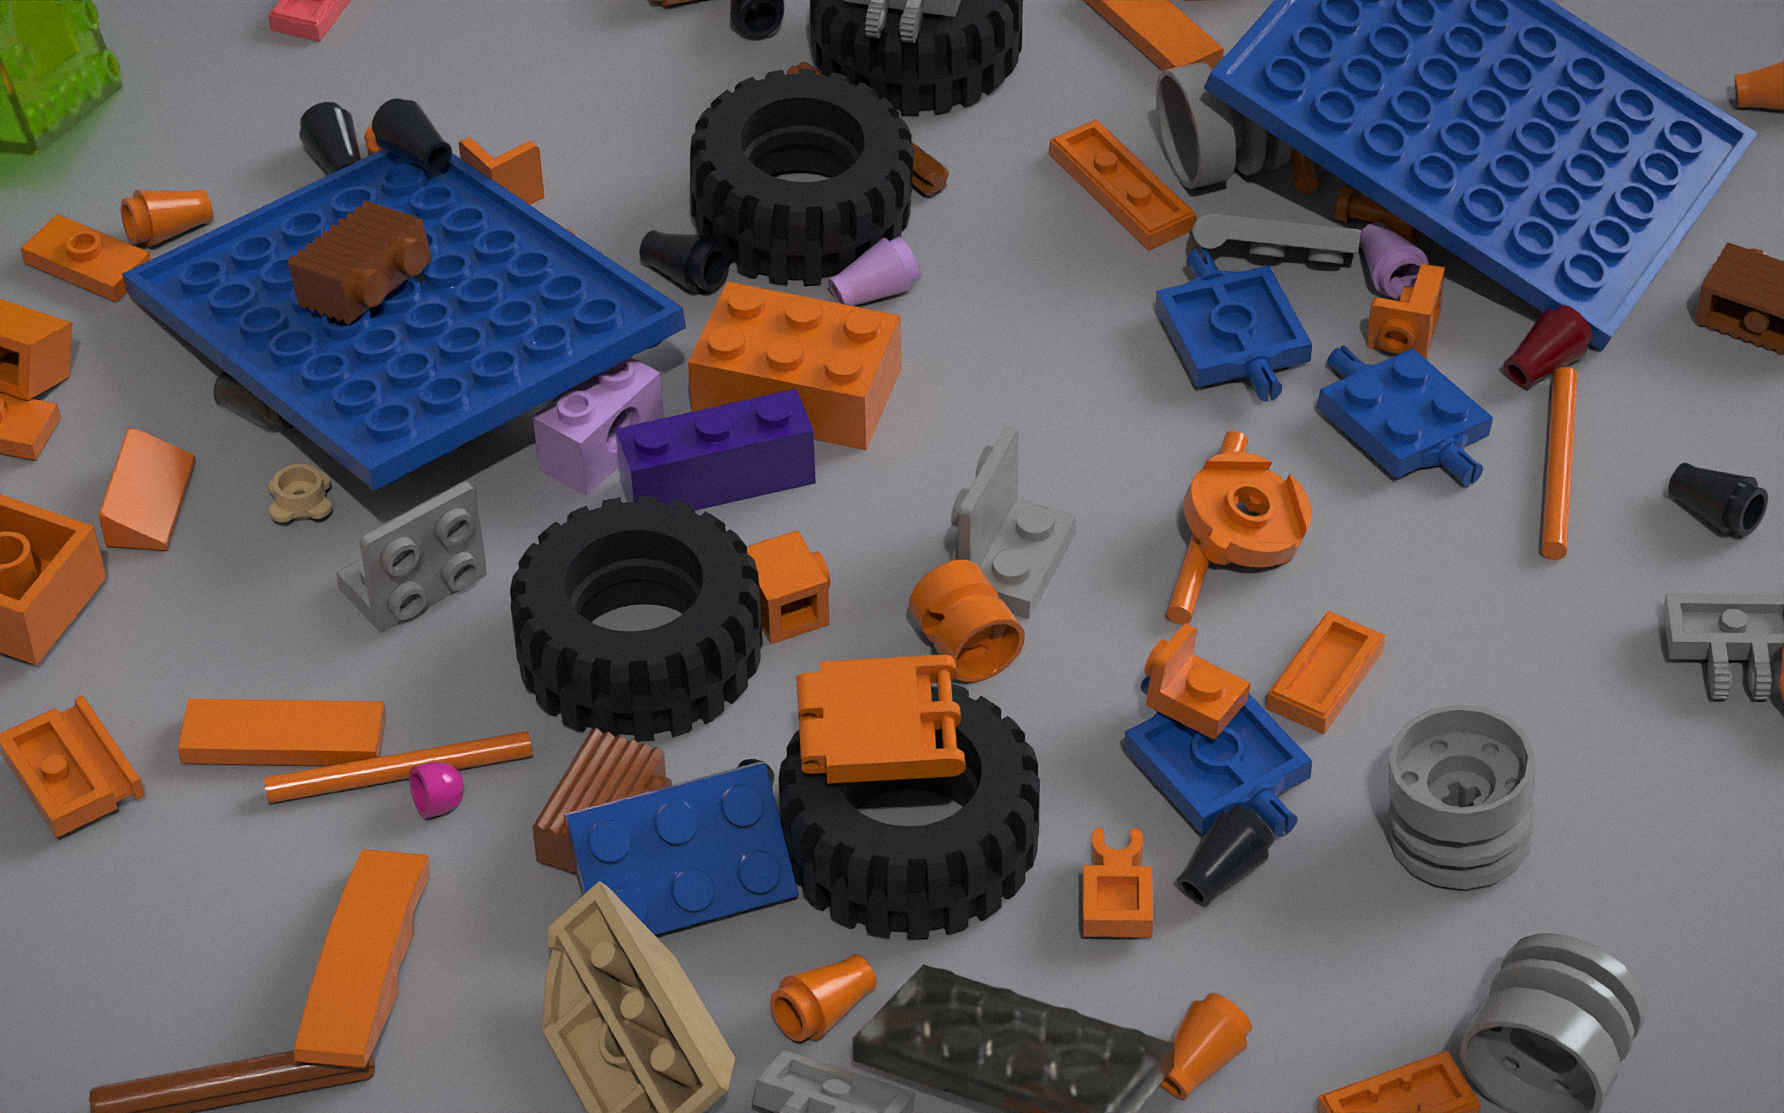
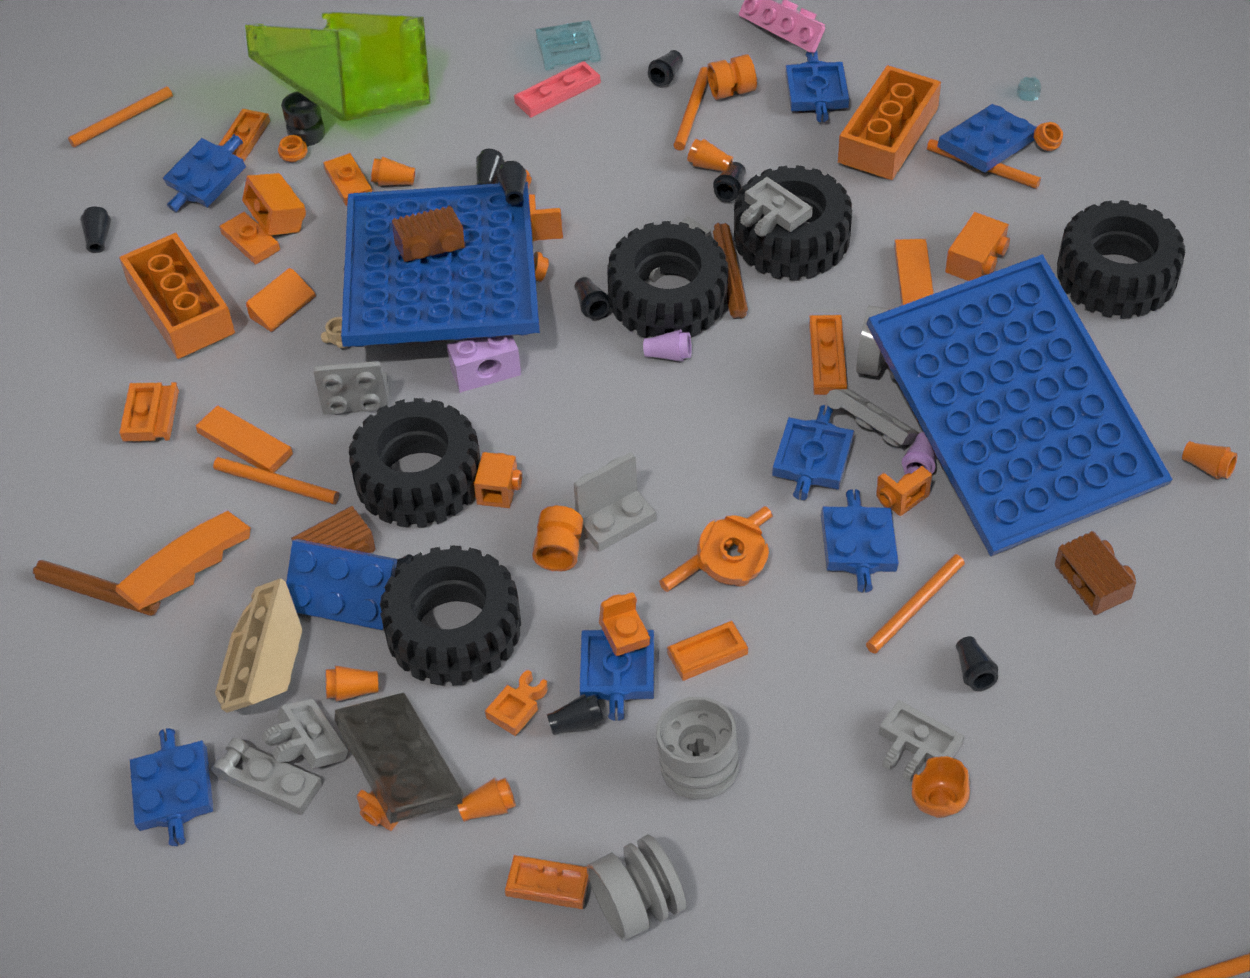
camera: 35 degrees right, 5 degrees up
(435, 788) = (279, 498): dark pink hinge -> none
(719, 452) = (519, 401): dark purple brick -> none
(780, 341) = (591, 374): orange piece -> none
(879, 719) = (448, 566): orange plate -> none
(1552, 343) = (960, 540): dark red cone -> none

